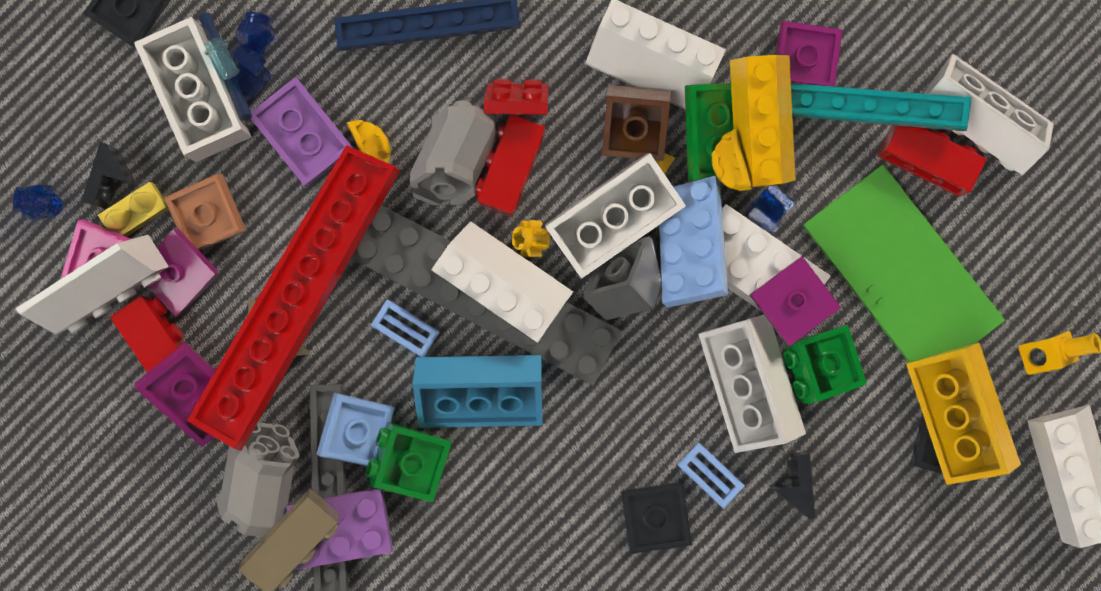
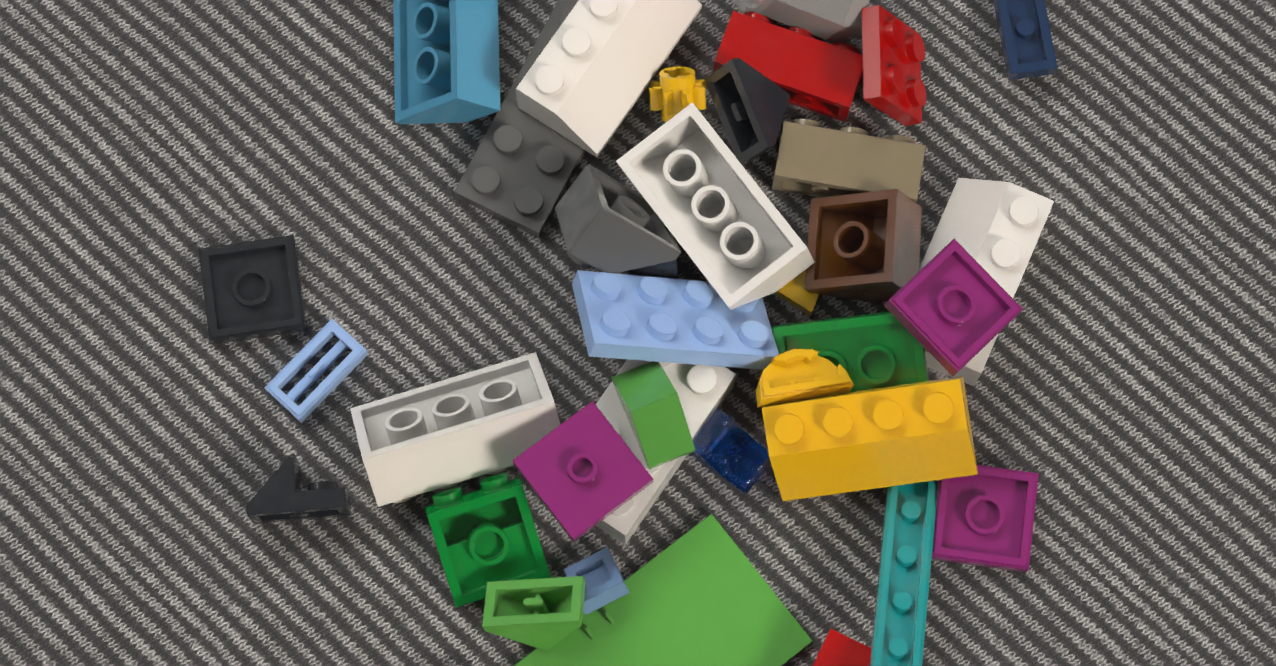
camera: 85 degrees right, 10 degrees down
(545, 191) = (748, 107): none -> black slope
(578, 130) = (845, 161): none -> dark tan brick
(689, 62) = (953, 307): none -> magenta plate
(756, 255) = (654, 413): none -> bright green slope
(850, 295) = (602, 579): none -> medium blue plate
(874, 333) = (535, 609): none -> bright green slope

